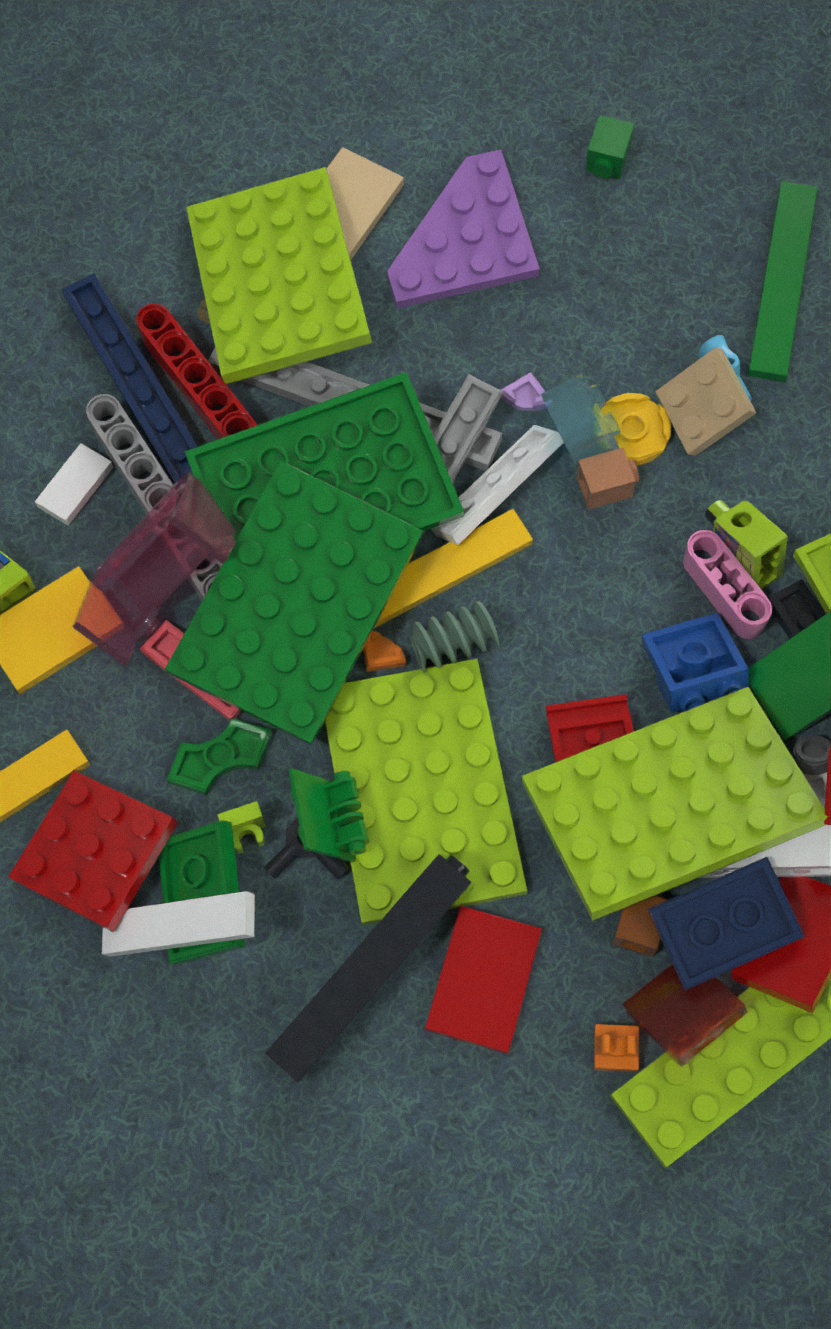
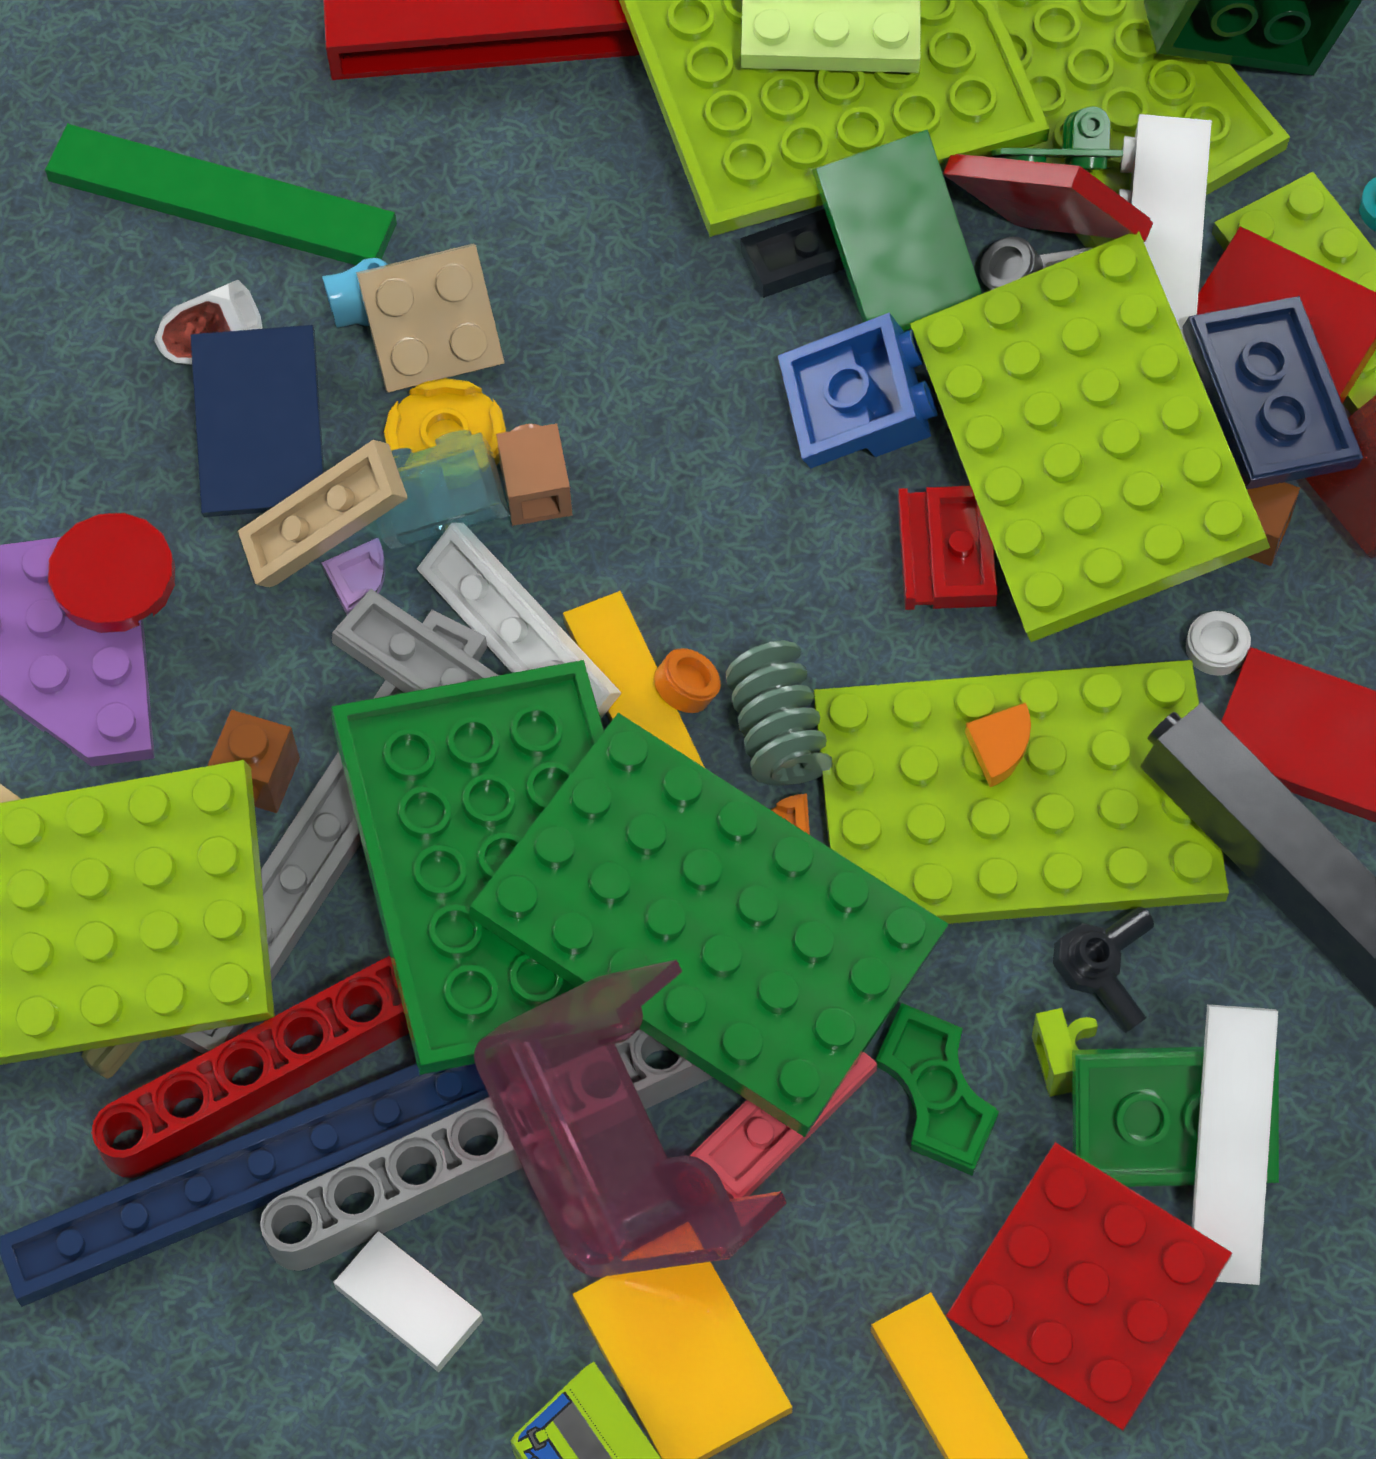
camera: 85 degrees left, 5 degrees down
(329, 815) = (1043, 920): green hinge -> none
(388, 352) = (268, 751): none -> dark orange brick
(444, 768) = (1000, 741): none -> orange tile
(474, 584) = (687, 680): none -> orange tile
(500, 257) = (111, 572): none -> red tile
(546, 909) = (1218, 643): none -> white tile
(551, 359) = (322, 514): none -> tan plate
(618, 320) = (255, 417): none -> dark blue tile
(684, 286) = (216, 311): none -> rock
(744, 589) = (734, 336): bright pink beam -> none
(751, 538) = (677, 294): lime torso -> none

